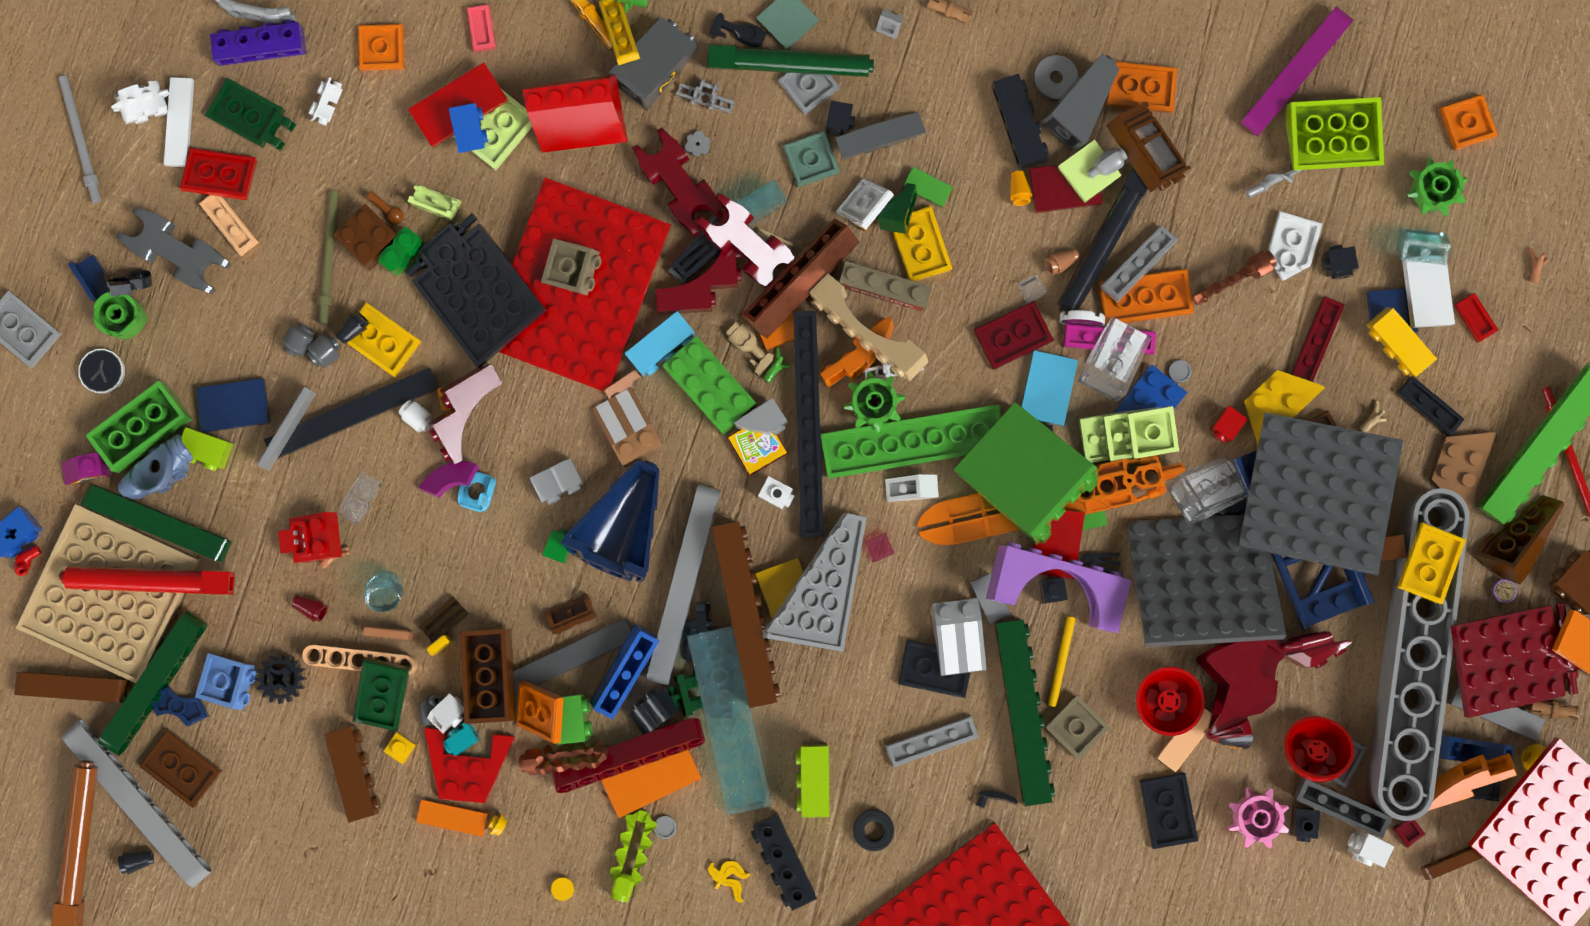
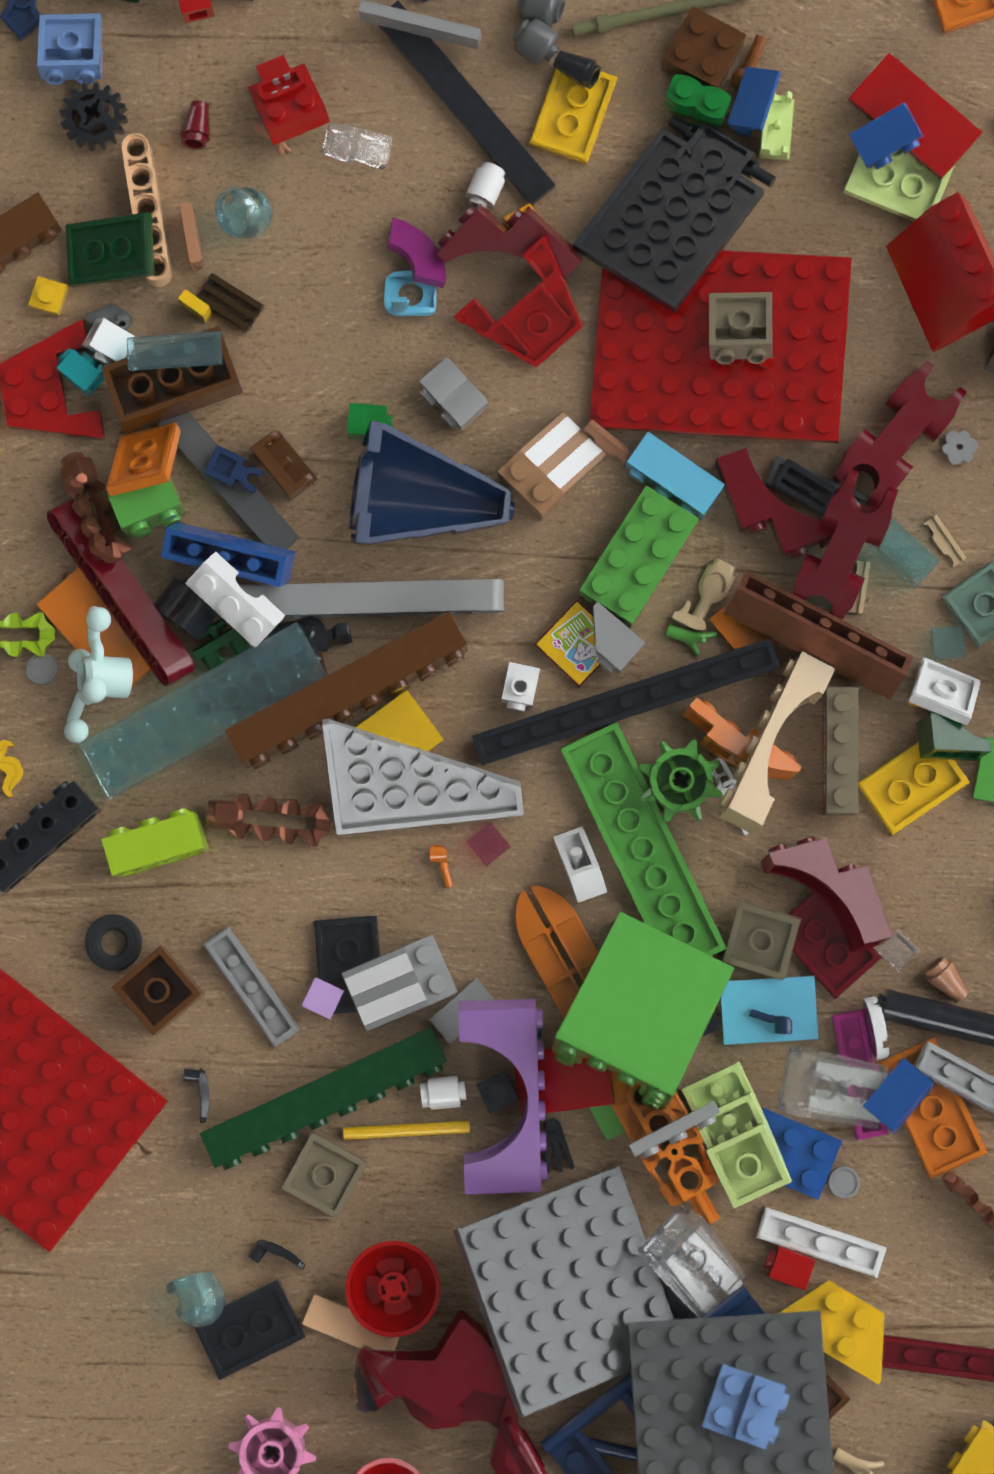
camera: 70 degrees right, 0 degrees up
(413, 212) = (753, 100): none -> blue panel
(469, 668) = (174, 350): none -> clear light blue tile
(523, 406) = (539, 320): none -> red wing
(562, 654) = (229, 468): none -> dark blue plate
(647, 684) = (218, 587): none -> white arch
(683, 788) = (96, 674): none -> light aqua wheel
(759, 173) = (945, 541): none -> tan piece
(807, 722) = (229, 816): none -> copper sword
(830, 191) = (948, 643): none -> clear light blue tile
(876, 584) = (438, 853): none -> orange hand
(917, 807) = (158, 990): none -> reddish brown brick
(954, 693) = (322, 998): none -> lavender tile
(981, 311) = (845, 890): none -> arch
(1000, 378) = (762, 940): none -> dark tan plate
(1043, 628) = (442, 1093): none -> white brick
(1061, 381) = (783, 1024): none -> dark blue hand
(1116, 475) = (674, 1131): none -> light grey plate
(1116, 787) = (264, 1246): none -> black piece
(1132, 316) = (899, 1095): none -> blue panel
(1140, 838) = (199, 1298): none -> clear light blue helmet
(1216, 399) = (821, 1242): none -> white tile
(1319, 481) = (745, 1407): none -> medium blue plate

